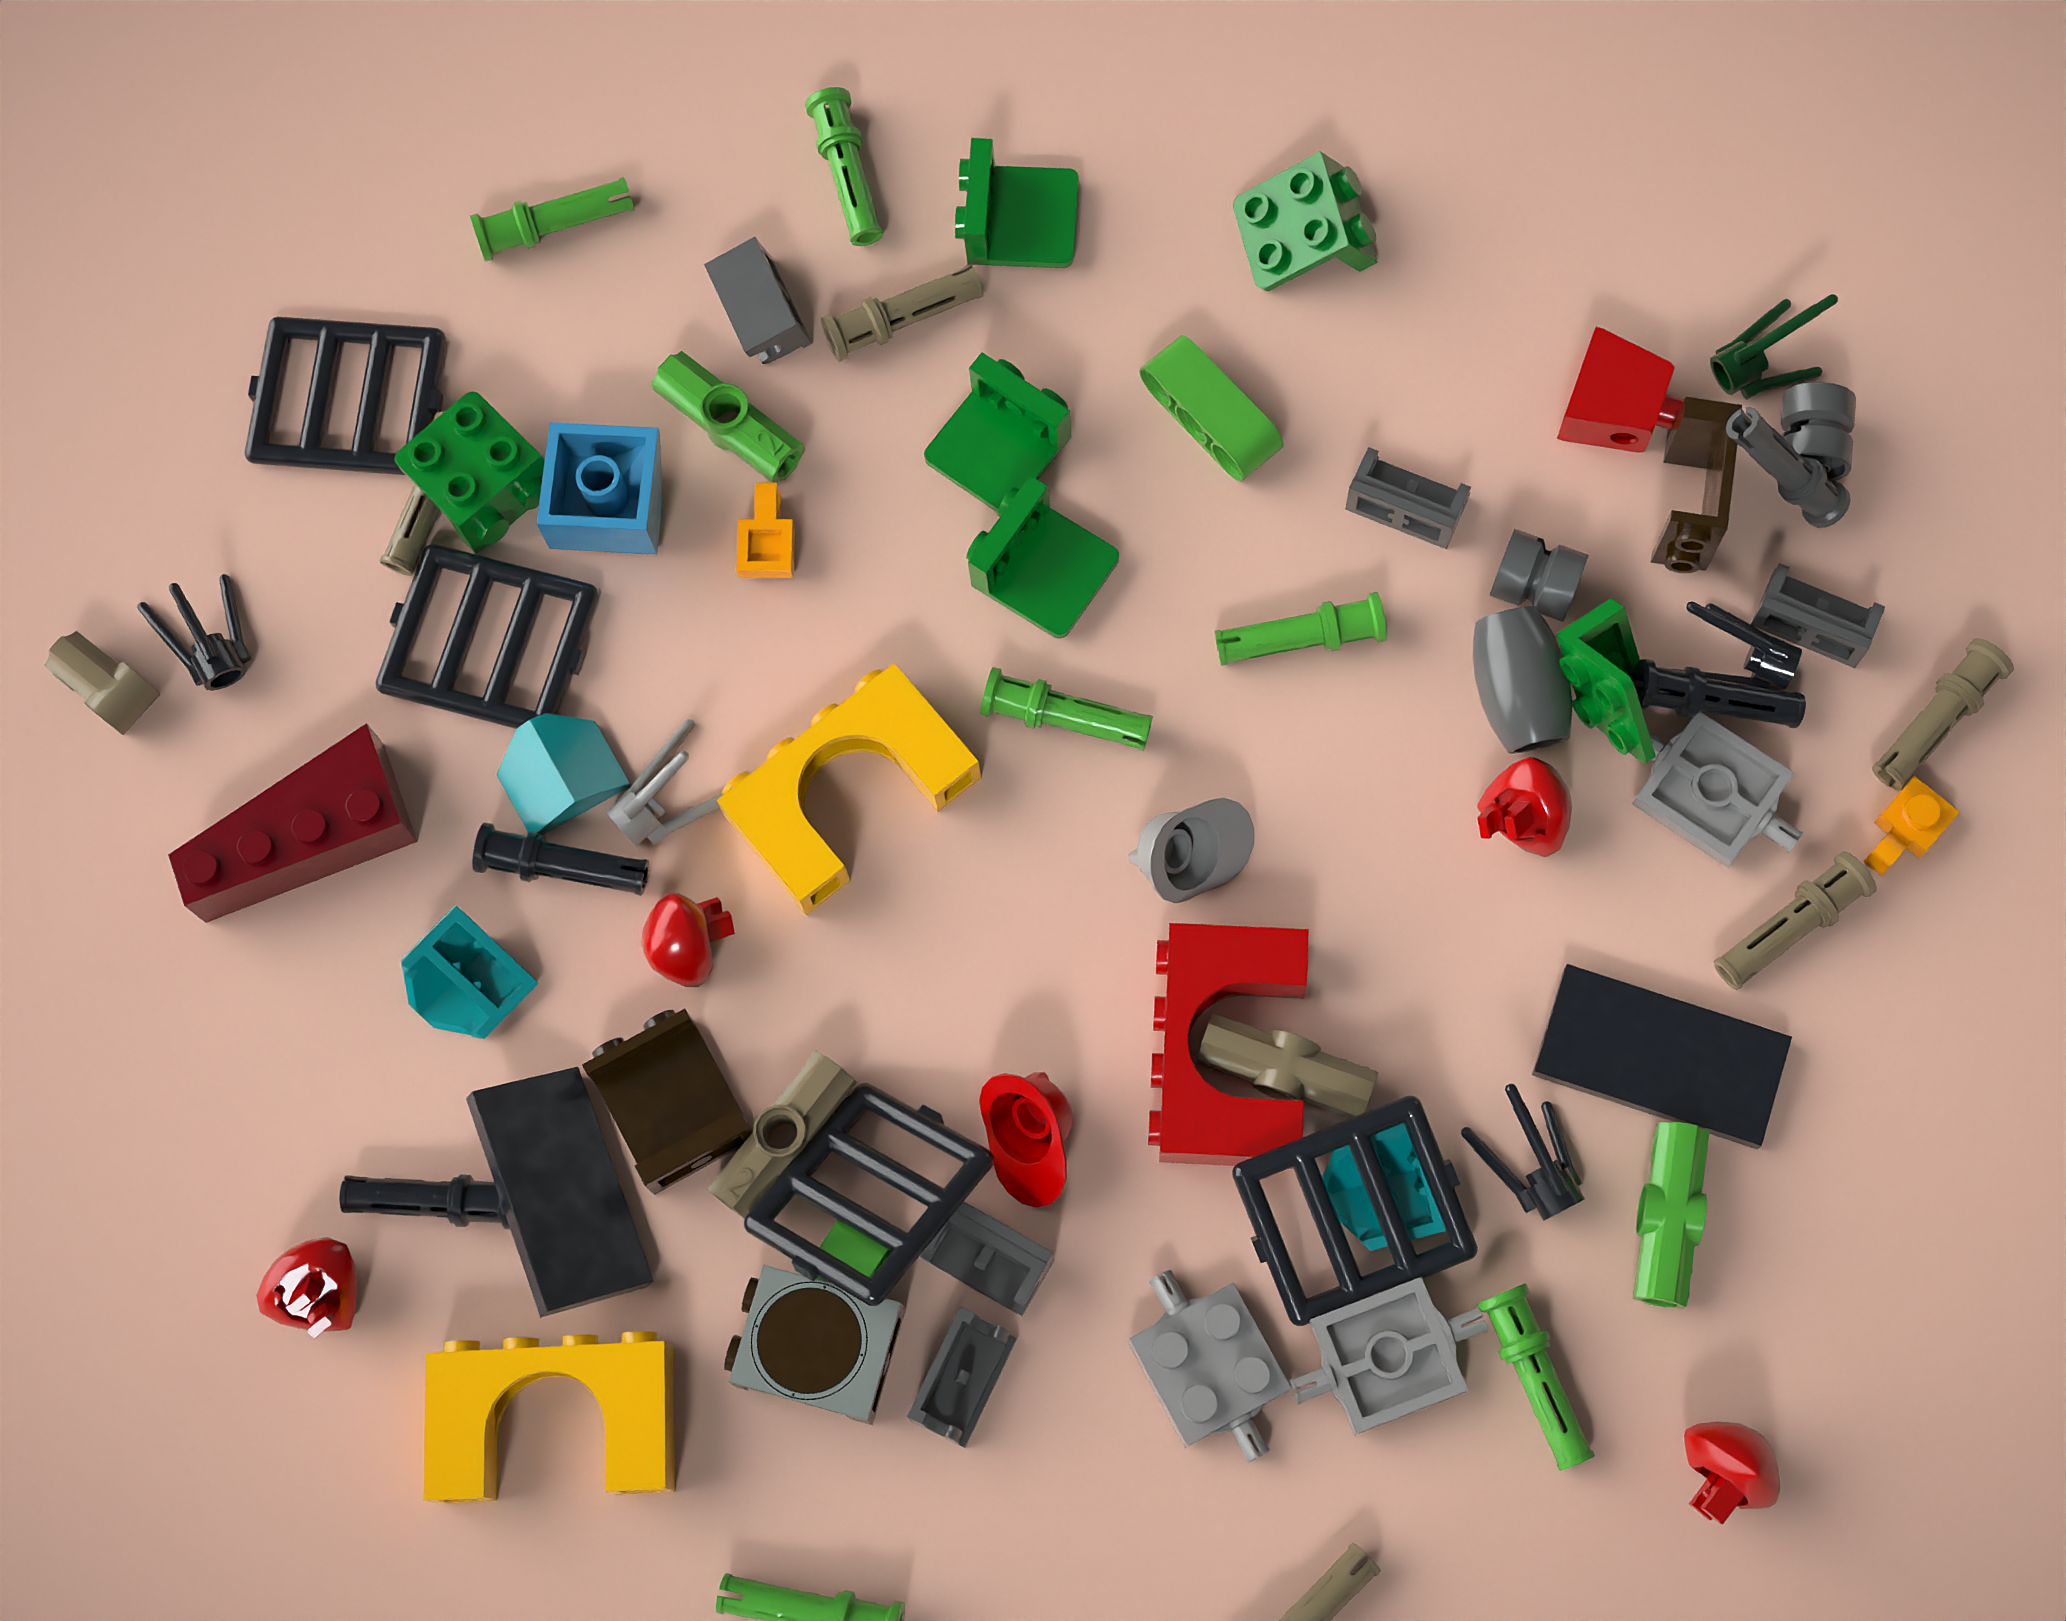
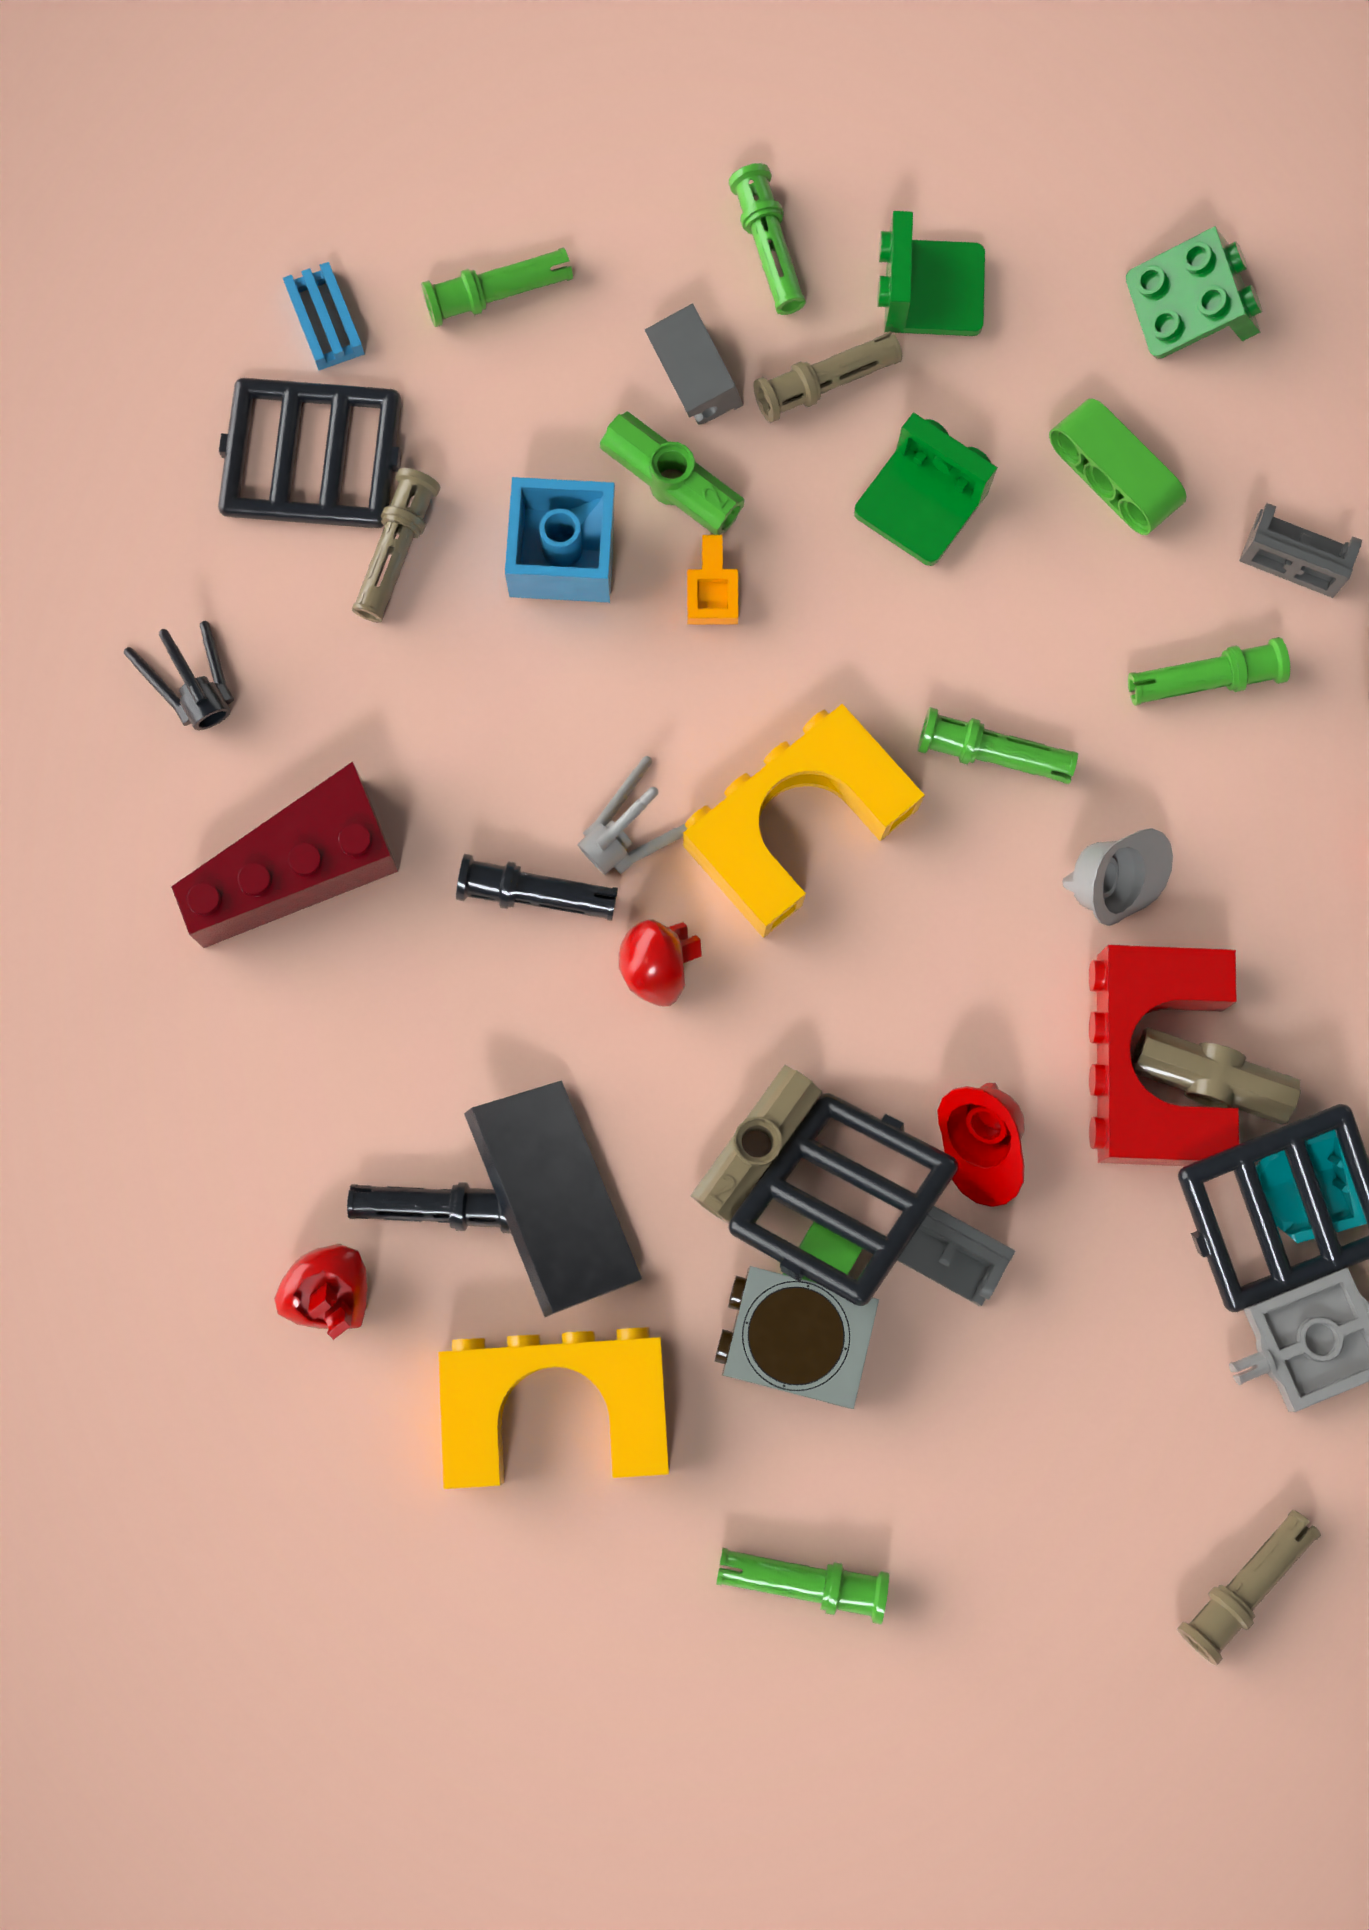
camera: 10 degrees left, 5 degrees up
(109, 688) = (104, 729): dark tan piece -> none
(354, 215) = (310, 282): none -> dark azure tile
(463, 977) = (451, 999): teal slope -> none
(474, 470) = (441, 522): green bracket -> none
(483, 570) = (463, 744): black bar -> none
(558, 770) = (528, 805): teal slope -> none
(668, 1099) = (647, 1111): dark brown panel -> none
(962, 1377) = (931, 1364): dark grey hinge -> none
(1039, 561) = (968, 609): green bracket -> none
(1209, 1365) = (1155, 1350): light grey plate -> none

